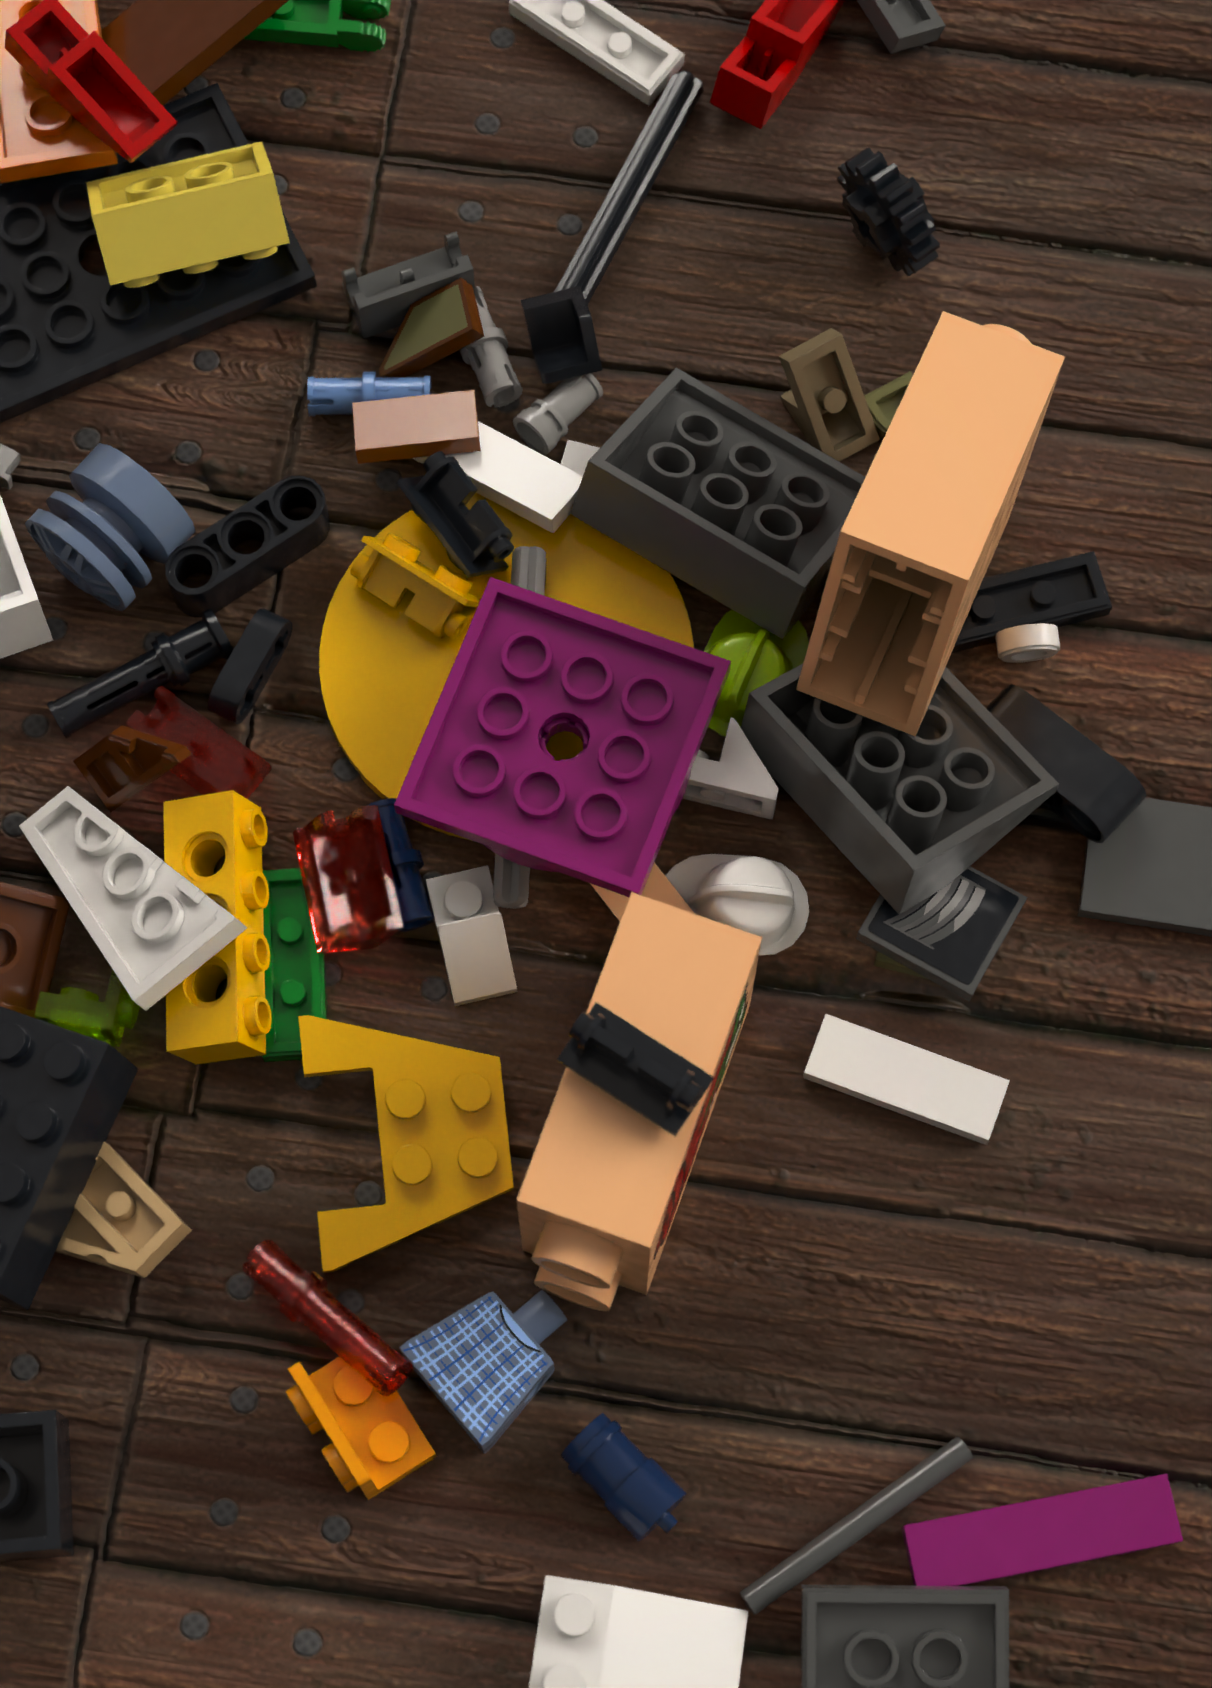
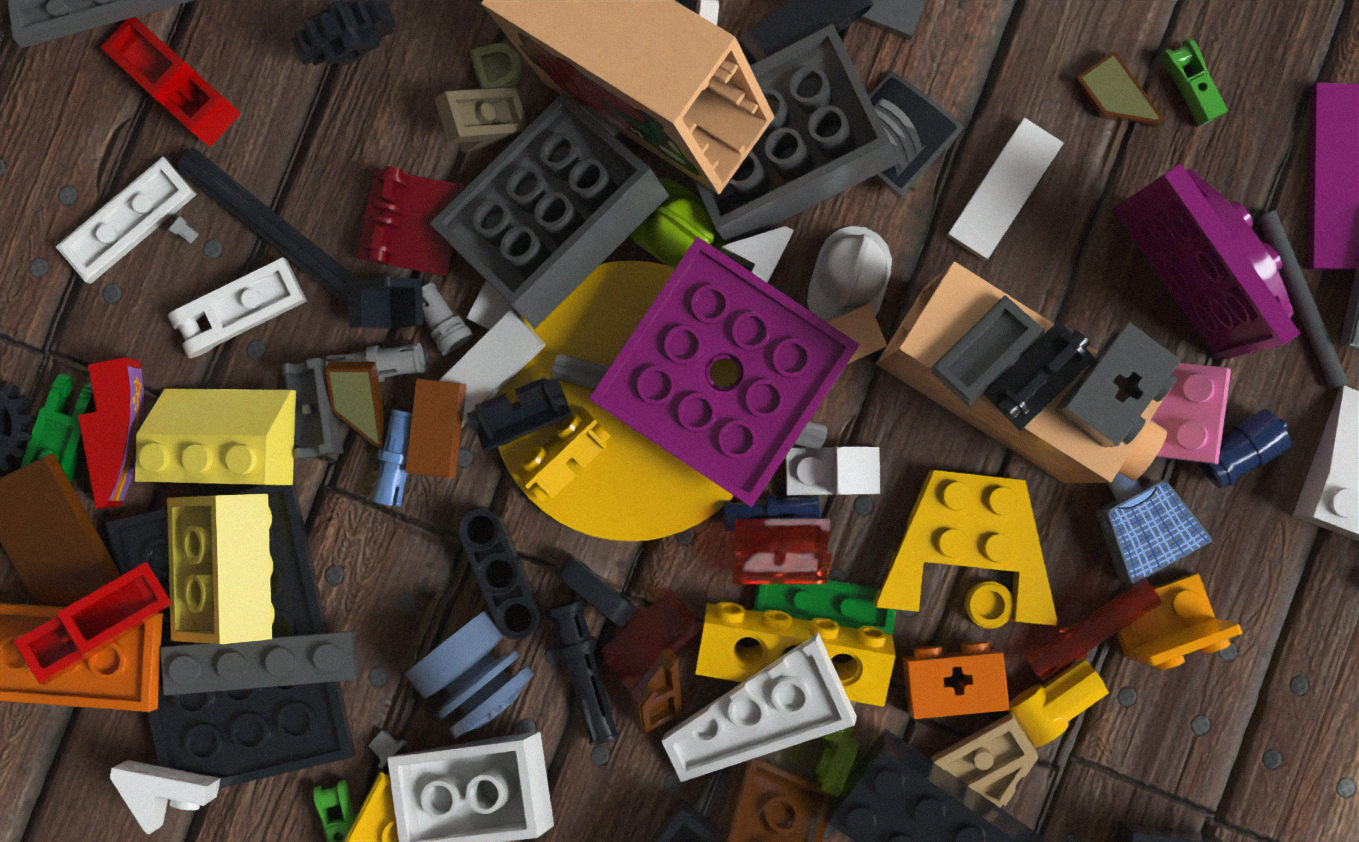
camera: 75 degrees left, 15 degrees up
(78, 287) = (260, 663): none -> dark grey plate
(197, 1115) = (979, 692): none -> orange brick
(206, 1283) = (1047, 708): none -> yellow piece
(332, 70) = (112, 429): none -> red slope
(333, 1178) = (989, 604): none -> yellow tile
(348, 181) = (218, 437): none -> light yellow slope
(518, 176) = (238, 307): none -> white plate
(601, 94) = (181, 227): none -> light grey piece
(621, 1134) = (1092, 399): none -> dark grey brick
(651, 994) = (987, 351): none -> dark grey tile
(654, 1365) = (1194, 413): none -> bright pink plate
(669, 333) = (399, 220): none -> dark red hinge
(863, 1327) = (1211, 263): none -> magenta piece
(1078, 1200) = (1116, 93): none -> olive tile
(1114, 1309) = (1199, 90): none -> bright green bar

